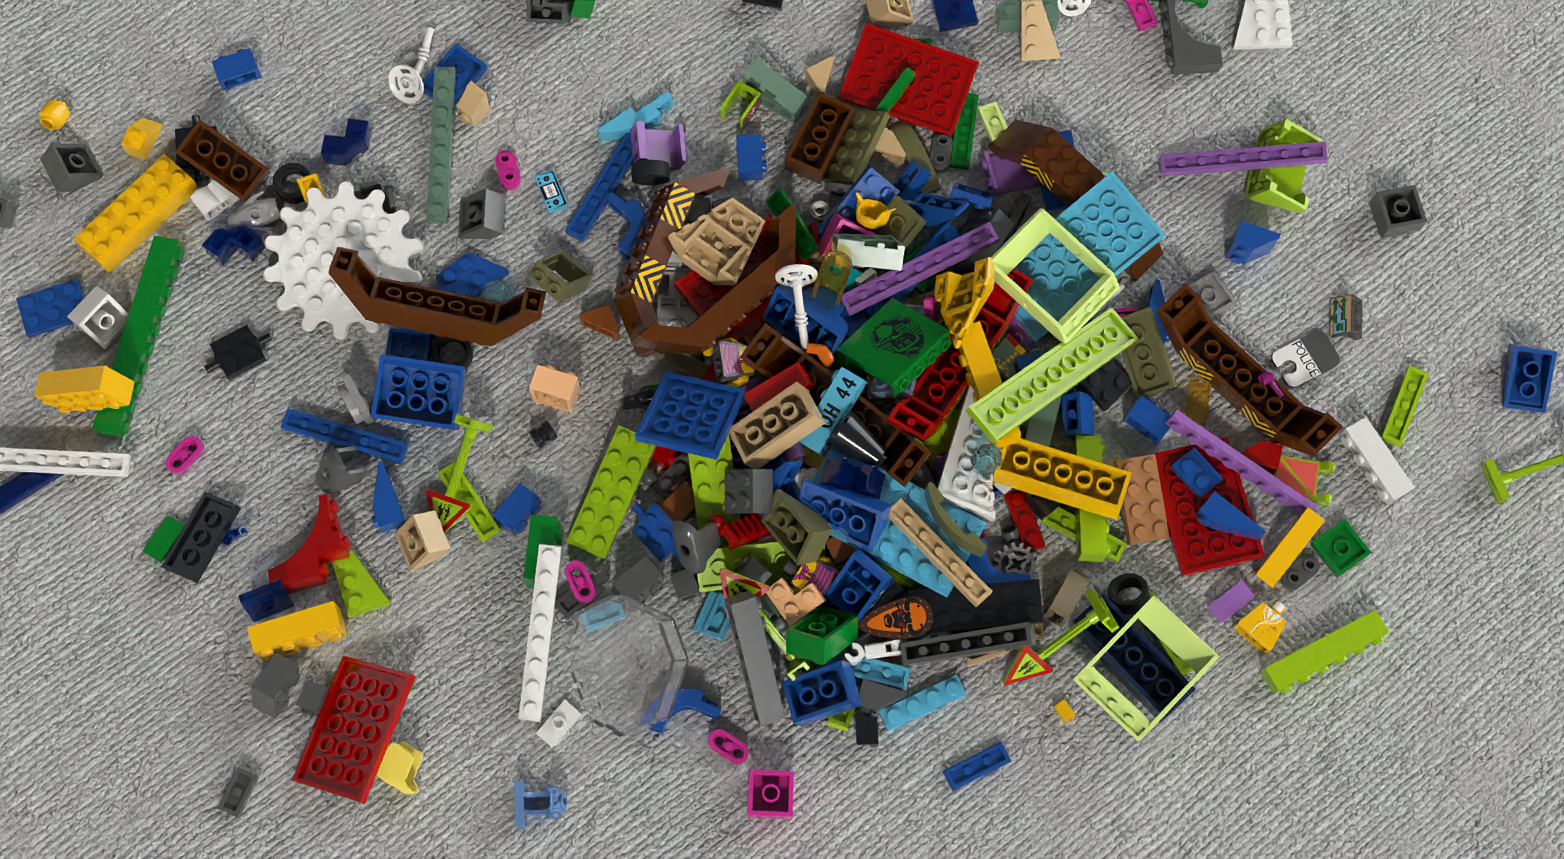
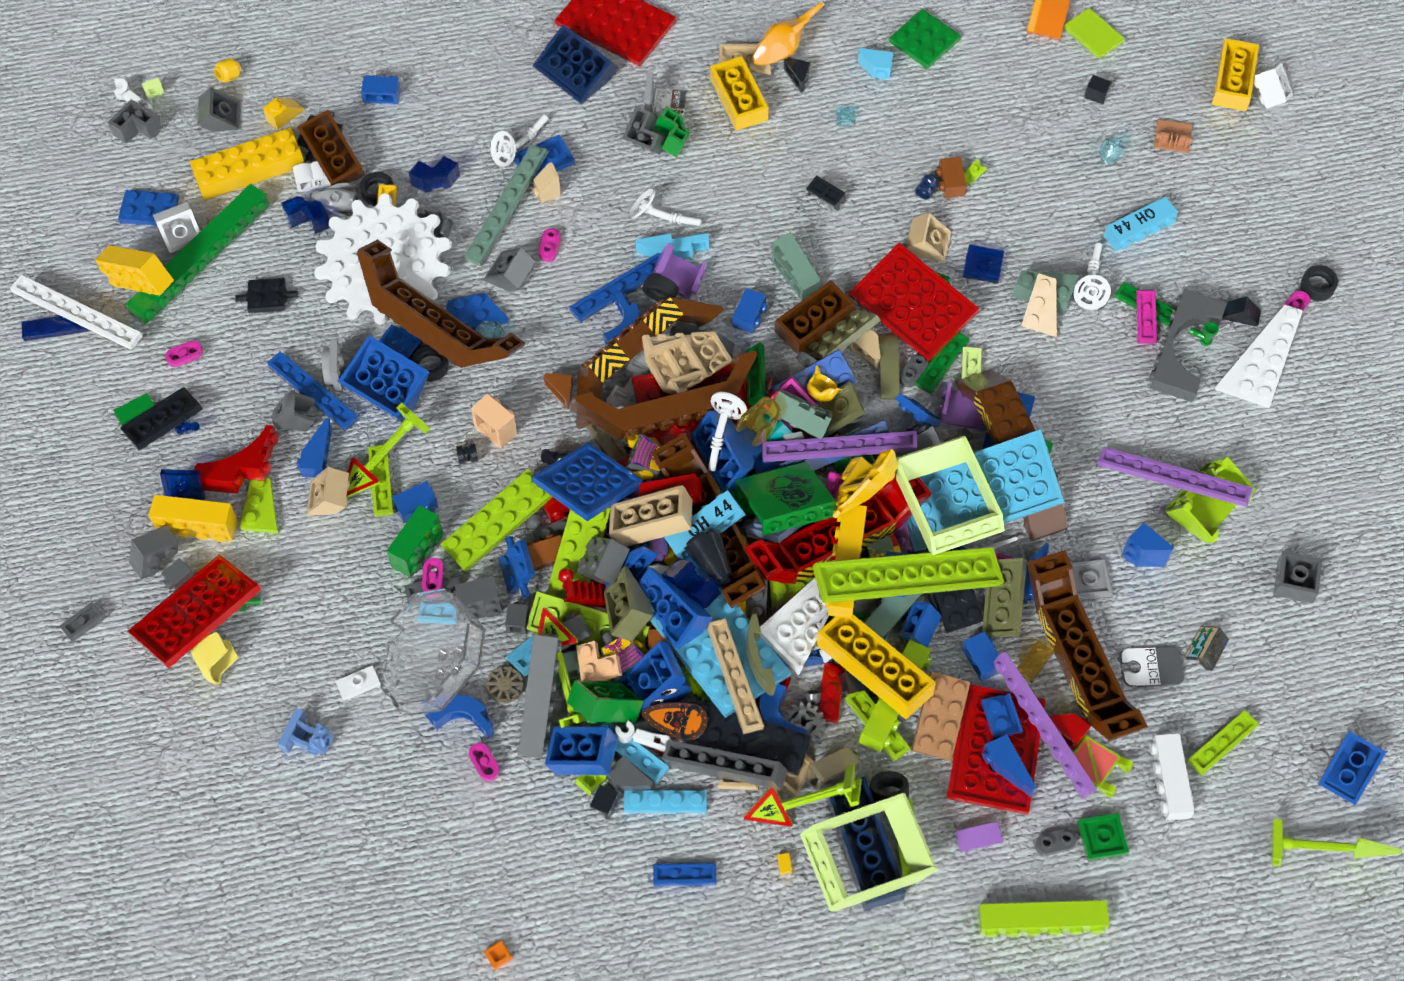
camera: 30 degrees right, 10 degrees down
(540, 632) = (378, 600): white plate -> none
(551, 191) = (575, 274): tile -> none
(562, 264) = (556, 348): olive window -> none
(588, 87) = (644, 204): none -> white dish
(694, 544) = (538, 583): dark grey piece -> none
(707, 658) = (504, 684): none -> dark tan wheel
(740, 90) = (758, 260): lime piece -> none
(770, 794) = (496, 814): dark pink brick -> none
(819, 75) = (843, 270): tan slope -> none
(819, 205) = (786, 370): white plate -> none
(823, 353) = (722, 478): orange arm -> none
(897, 90) = (897, 305): green beam -> none
(912, 181) = (874, 382): blue slope -> none
(937, 208) = (879, 407): blue slope -> none
(986, 459) = (815, 619): clear light blue head -> none
(1262, 626) = (997, 869): yellow torso -> none
(1268, 378) = (1102, 661): magenta hand -> none
(1289, 547) = (1054, 813): yellow tile -> none

